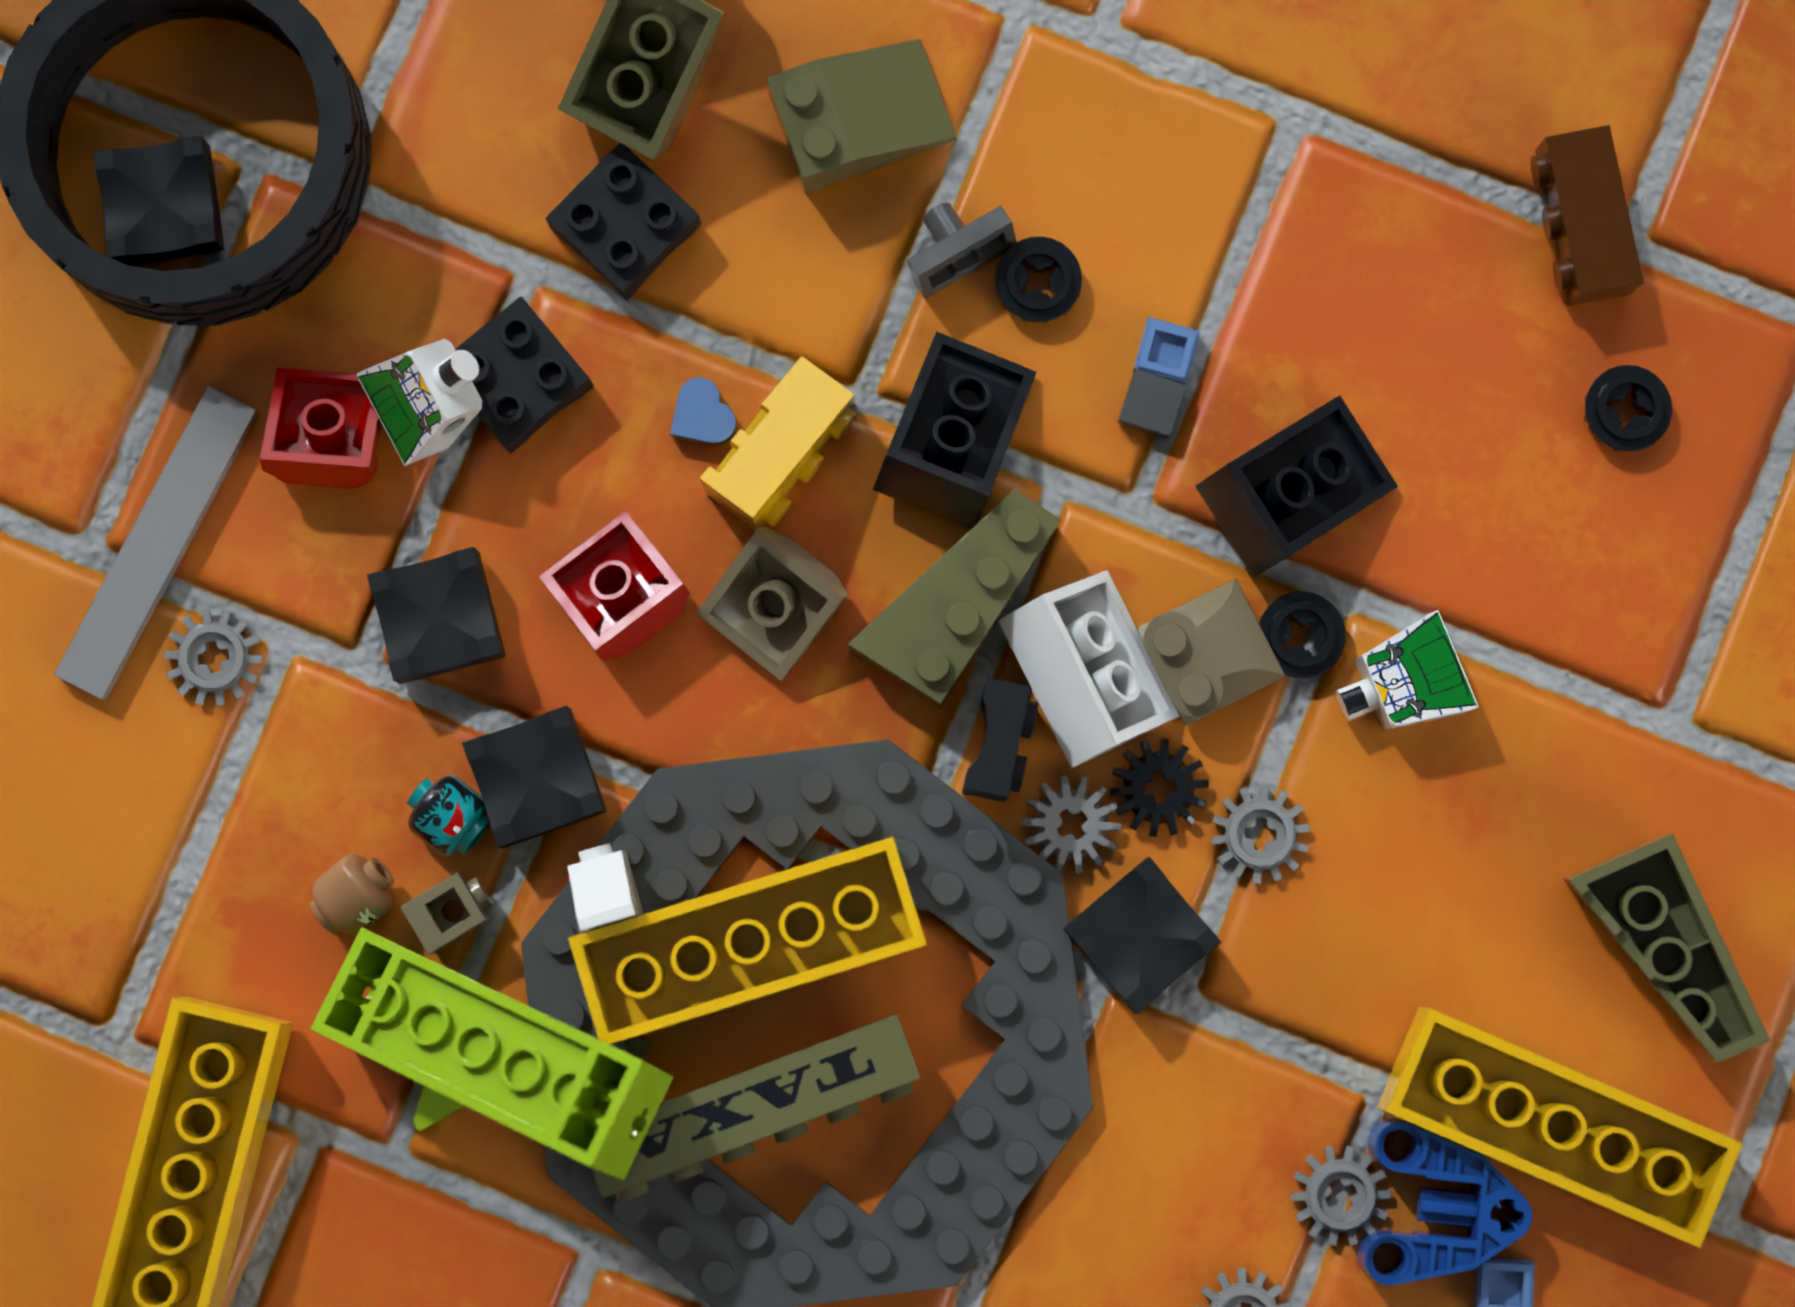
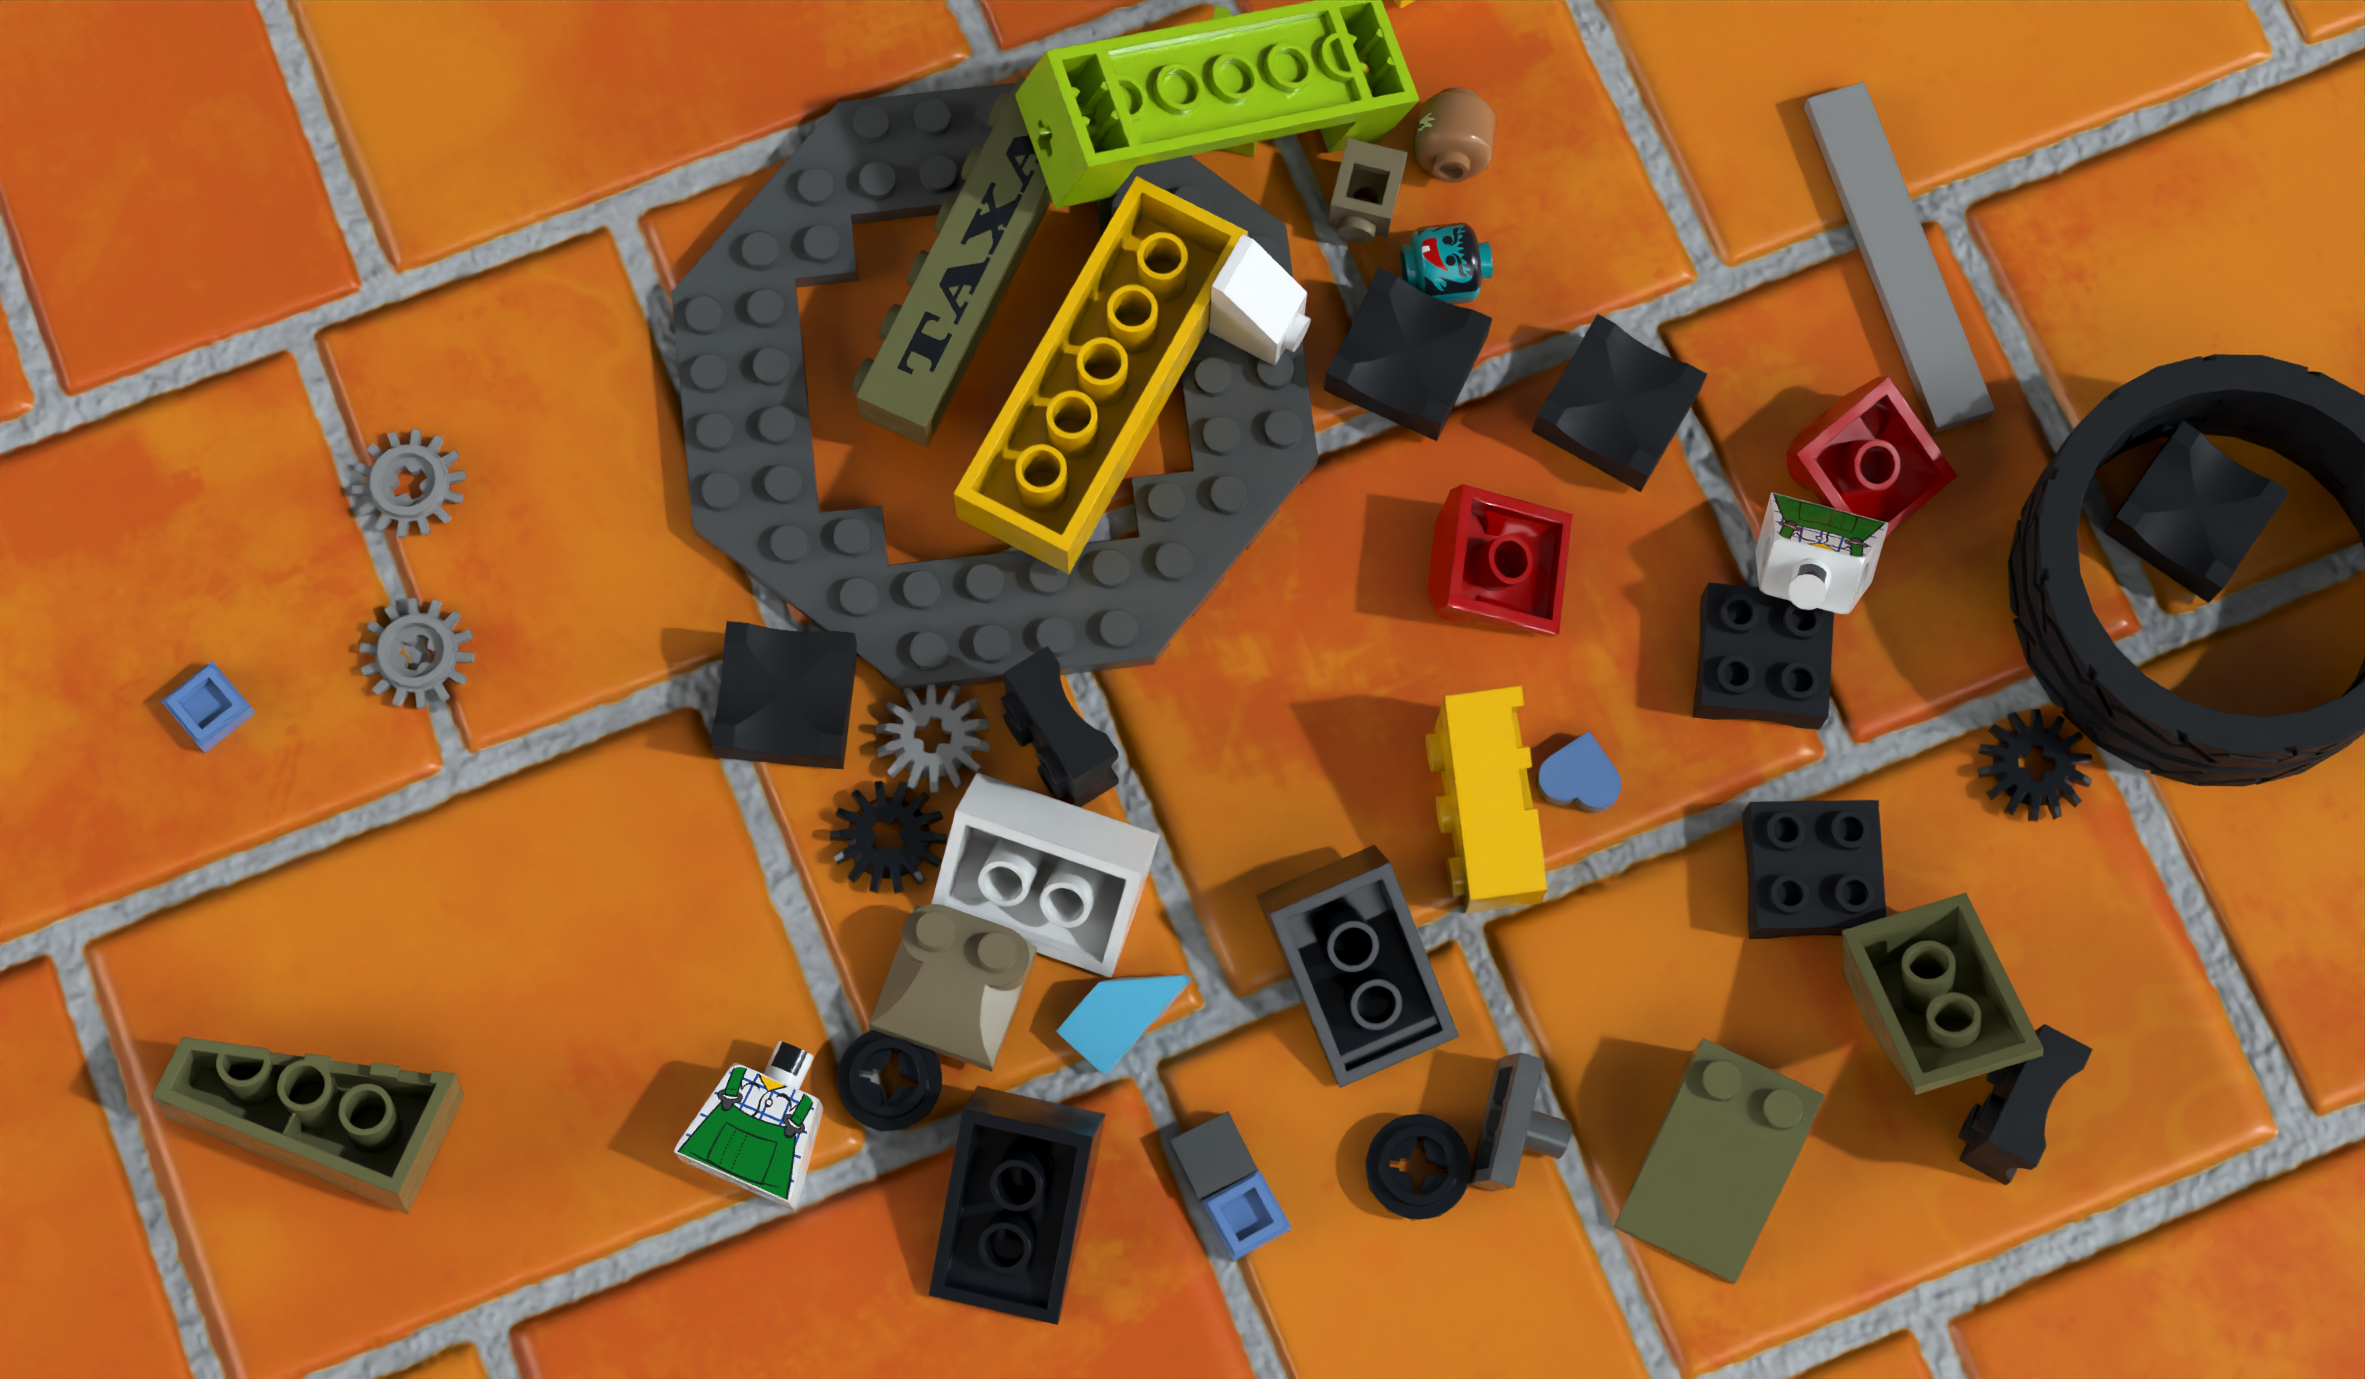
camera: 130 degrees right, 10 degrees down
(196, 644) = (1752, 192): light grey gear -> none
(420, 176) = (2016, 780): none -> black gear
(774, 601) = (1361, 677): dark tan slope -> none
(951, 608) = (1206, 806): olive wedge -> none
(1126, 539) = (1118, 1015): none -> medium azure slope
(1276, 819) = (767, 855): light grey gear -> none
(1439, 1254) = (294, 674): blue connector -> none
(1559, 1126) = (276, 867): yellow brick -> none

